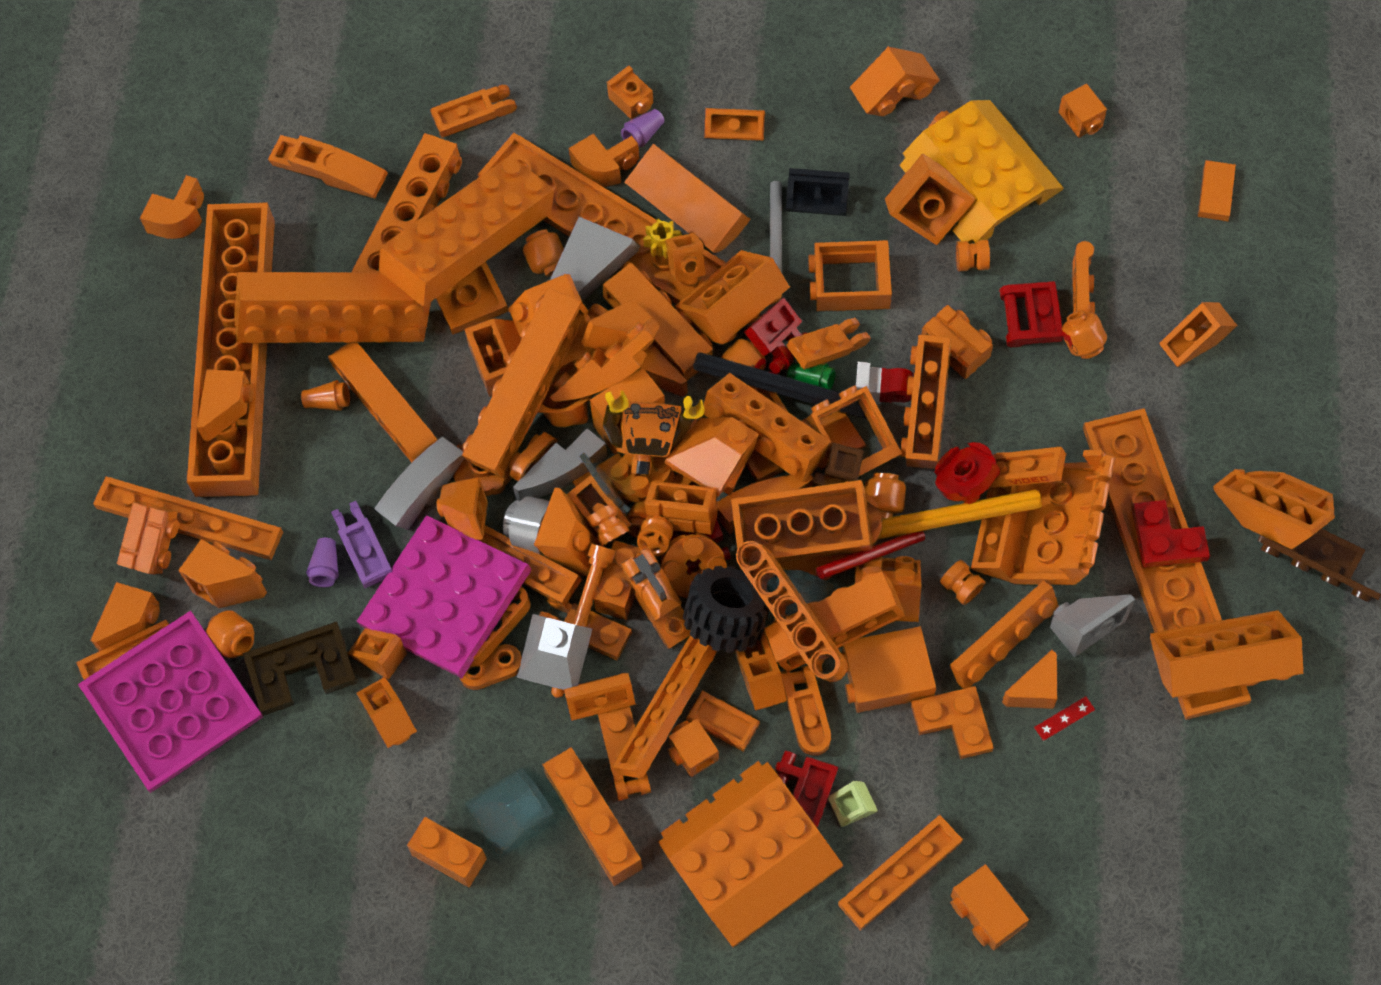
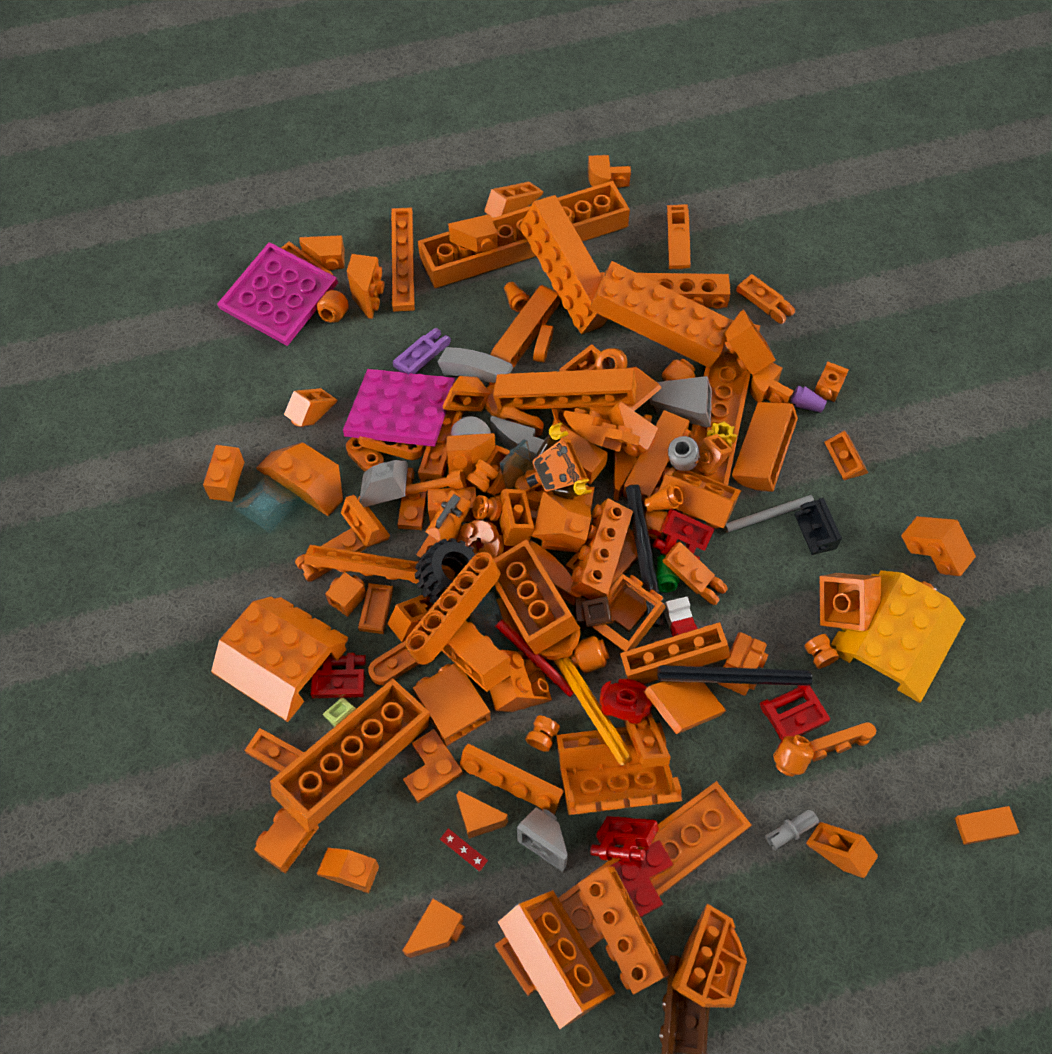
camera: 65 degrees right, 5 degrees down
(148, 538) = (378, 239): orange brick -> none
(160, 343) = (511, 198): none -> orange slope
(273, 662) = (340, 354): dark brown plate -> none
(323, 563) = (400, 337): medium lavender cone -> none
(378, 651) = (347, 388): orange slope -> none
(419, 390) = (543, 343): none -> orange beam
(472, 300) = (632, 344): orange plate -> none
(489, 750) = (306, 475): none -> orange wedge
(511, 313) = (604, 360): none -> orange head
(553, 152) = (748, 344): none -> orange slope
(593, 816) = (274, 549): orange brick -> none
(683, 277) = (683, 453): none -> light grey head
(732, 331) = (667, 498): none -> orange cone
(851, 253) = (769, 593): orange window -> none
(922, 796) = (349, 754): none -> orange brick
(978, 351) = (734, 675): none -> black axle
(987, 415) = (684, 703): none -> orange tile
(1048, 848) = (349, 868): none -> orange slope
(1083, 111) = (996, 692): orange brick -> none
(1118, 525) = (626, 832): none -> red plate
(1150, 774) = (435, 930): none -> orange slope
(1160, 372) = (791, 829): none -> light grey axle
(1220, 574) = (623, 930): none -> orange brick

